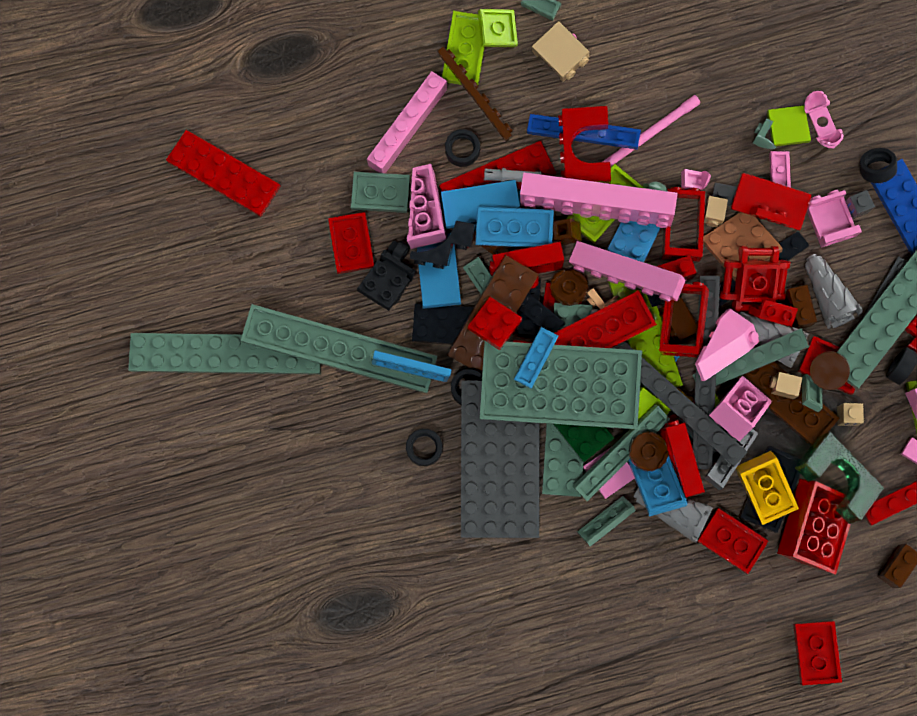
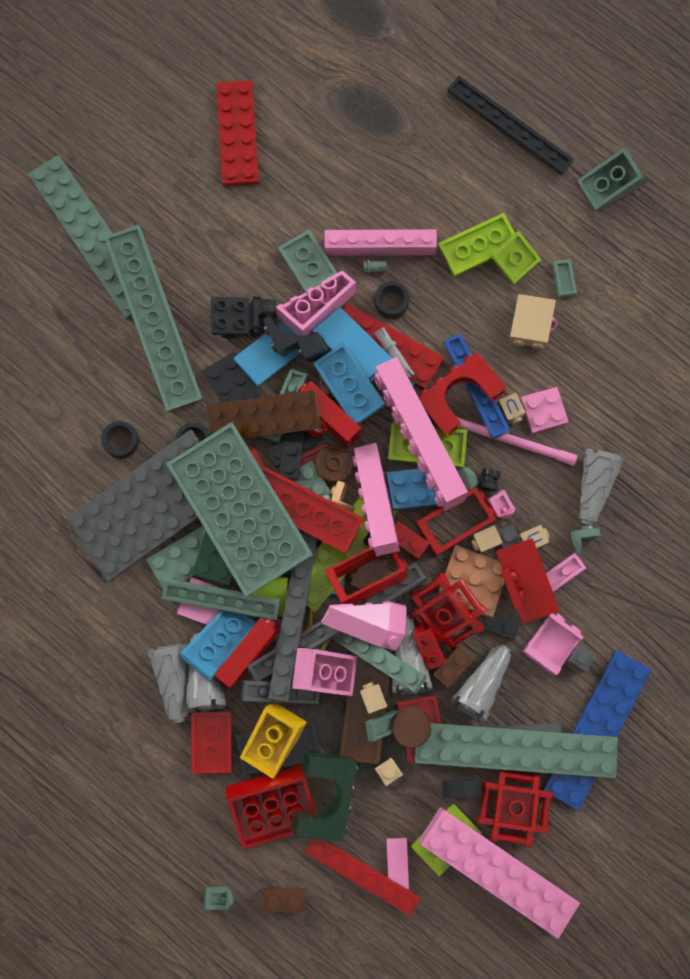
camera: 55 degrees right, 0 degrees up
(351, 243) = (249, 268): red plate -> none
(411, 366) = (172, 380): dark azure tile -> none
(421, 145) = (374, 266): none -> sand green pin
(471, 87) = (446, 270): reddish brown plate -> none
(494, 323) = (251, 420): red plate -> none
(536, 357) = (245, 472): dark azure tile -> none
(567, 231) = (378, 429): reddish brown brick -> none
(606, 521) = (157, 626): sand green plate -> none
(621, 116) = (511, 409): none -> tan brick
(638, 94) = (544, 410): none -> bright pink plate
(648, 451) = (235, 619): reddish brown tile -> none
(658, 536) = (171, 678): none -> light grey cone
(667, 175) = (489, 480): none -> black wheel
(724, 89) = (597, 481): none -> light grey cone
(736, 169) = (538, 534): none -> tan brick
(789, 126) = (609, 553): lime tile -> none
(816, 107) = (643, 564): bright pink piece -> none
(817, 653) = (164, 877): red plate -> none
(864, 619) = (218, 898): none -> sand green plate
(876, 155) = (635, 643): black tyre -> none

